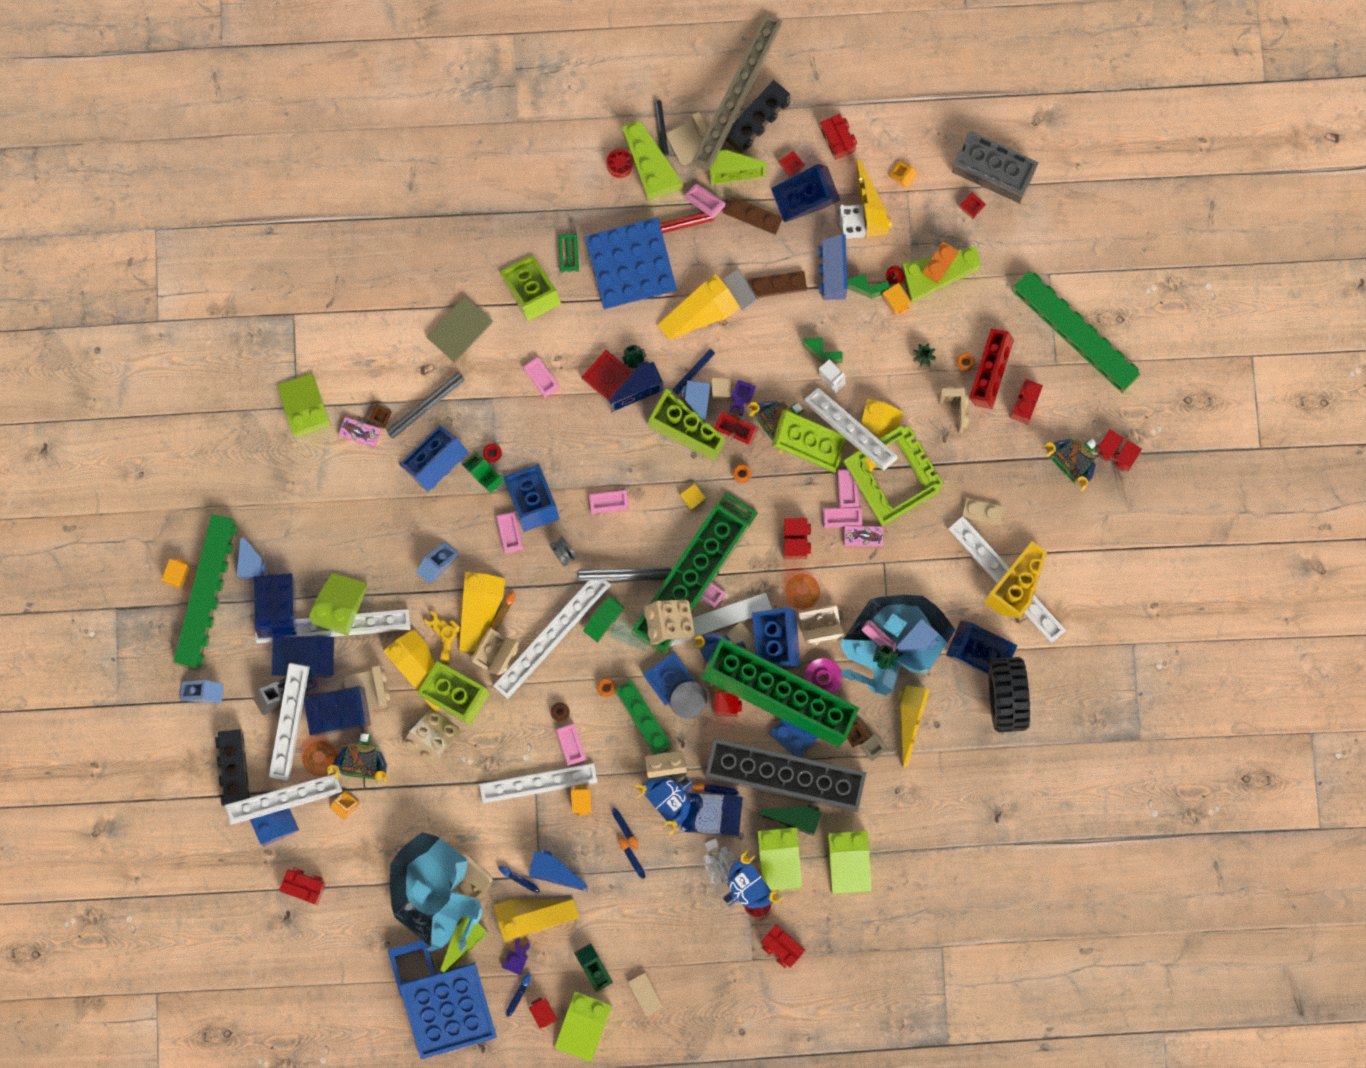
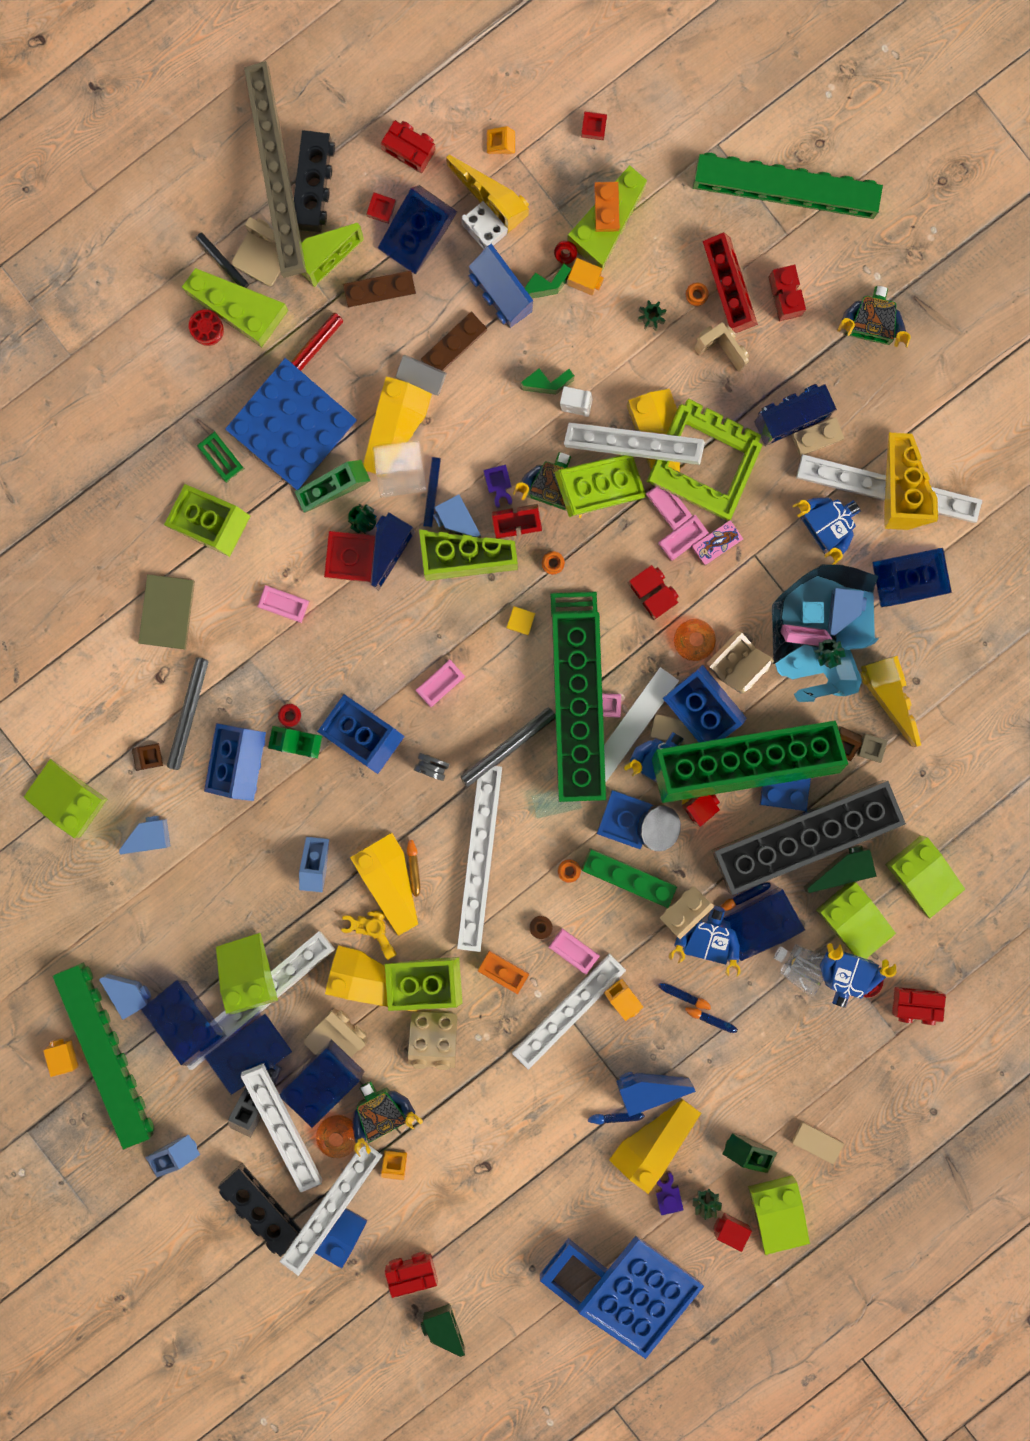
camera: 35 degrees left, 10 degrees up
(297, 940) = (443, 1330): none -> dark green slope
(340, 467) = (147, 836): none -> medium blue slope
(359, 432) = (141, 786): tile -> none
(424, 893) = (533, 1199): medium azure piece -> none
(453, 954) = (608, 1212): lime slope -> none
(475, 881) = (570, 1159): tan bracket -> none
(494, 652) = (436, 915): tan bracket -> none
(509, 532) = (363, 782): bright pink tile -> none
(512, 724) = (503, 972): none -> orange plate
(518, 995) = (695, 1230): clear blue piece -> none
(539, 981) = (707, 1204): none -> dark green gear
(603, 619) = (519, 805): green slope -> none
(630, 321) = (332, 485): none -> green slope
(669, 620) = (591, 768): tan bracket -> none
(682, 340) = (399, 469): none -> clear slope
(704, 200) = (319, 307): bright pink tile -> none
(721, 388) = (471, 490): tan slope -> none
(827, 668) = (782, 701): dark pink dish -> none
(948, 574) = (829, 524): none -> blue torso
(974, 484) = (794, 413): none -> clear blue brick
(994, 167) = (591, 68): dark grey piece -> none
(1009, 694) = (979, 605): black tyre -> none
(1126, 456) = (918, 281): red piece -> none

